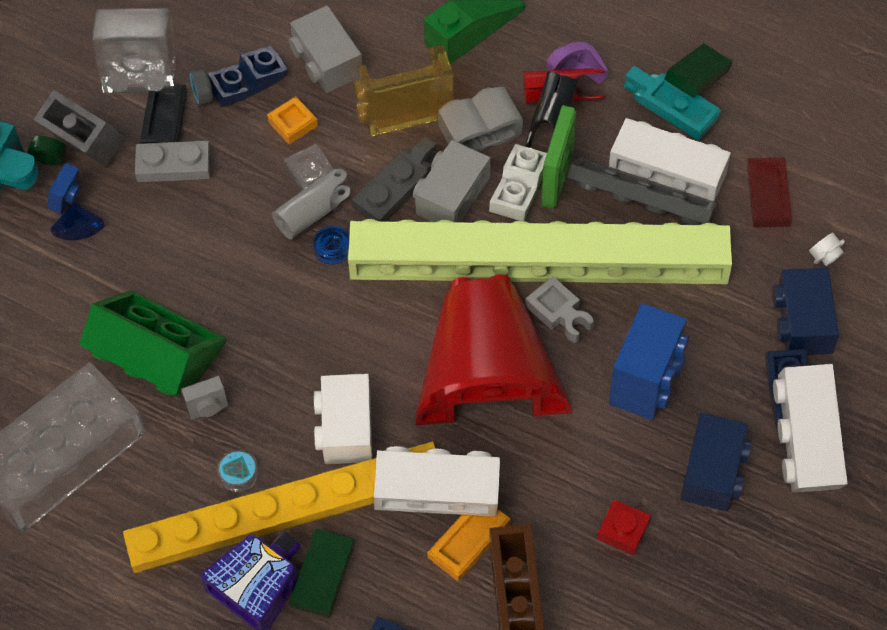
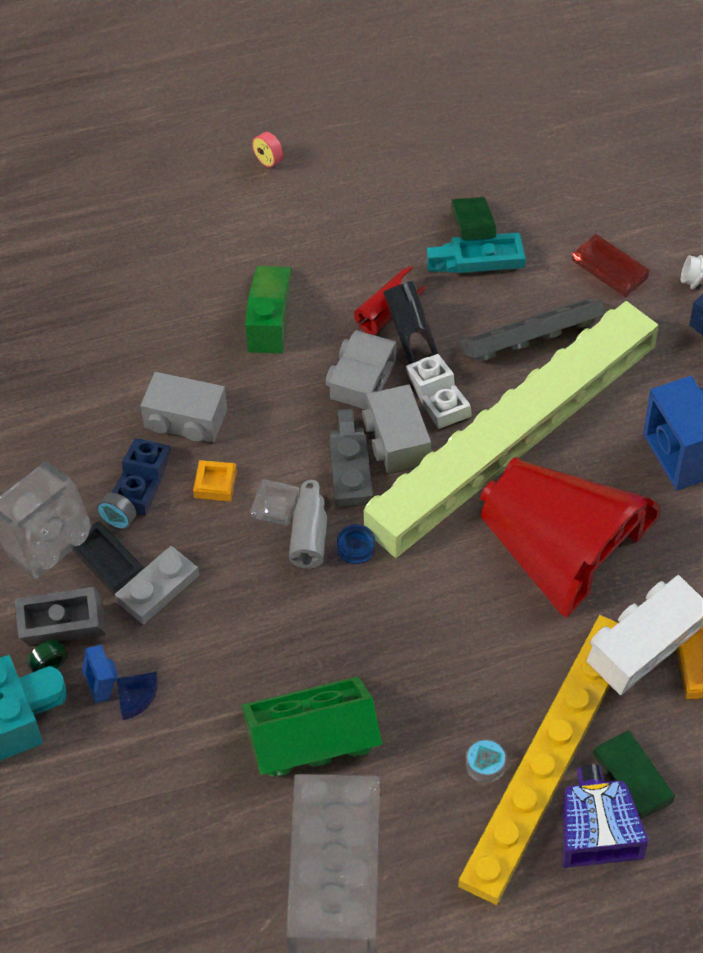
camera: 45 degrees left, 5 degrees down
(205, 398) = (403, 729): light grey plate -> none
(345, 418) = (522, 652): white brick -> none
(405, 97) = (283, 410): clear yellow panel -> none
(557, 306) = (569, 453): light grey plate -> none
(558, 157) = (458, 346): bright green tile -> none
(578, 56) = (380, 271): medium lavender hair -> none
(670, 159) = (526, 291): white brick -> none

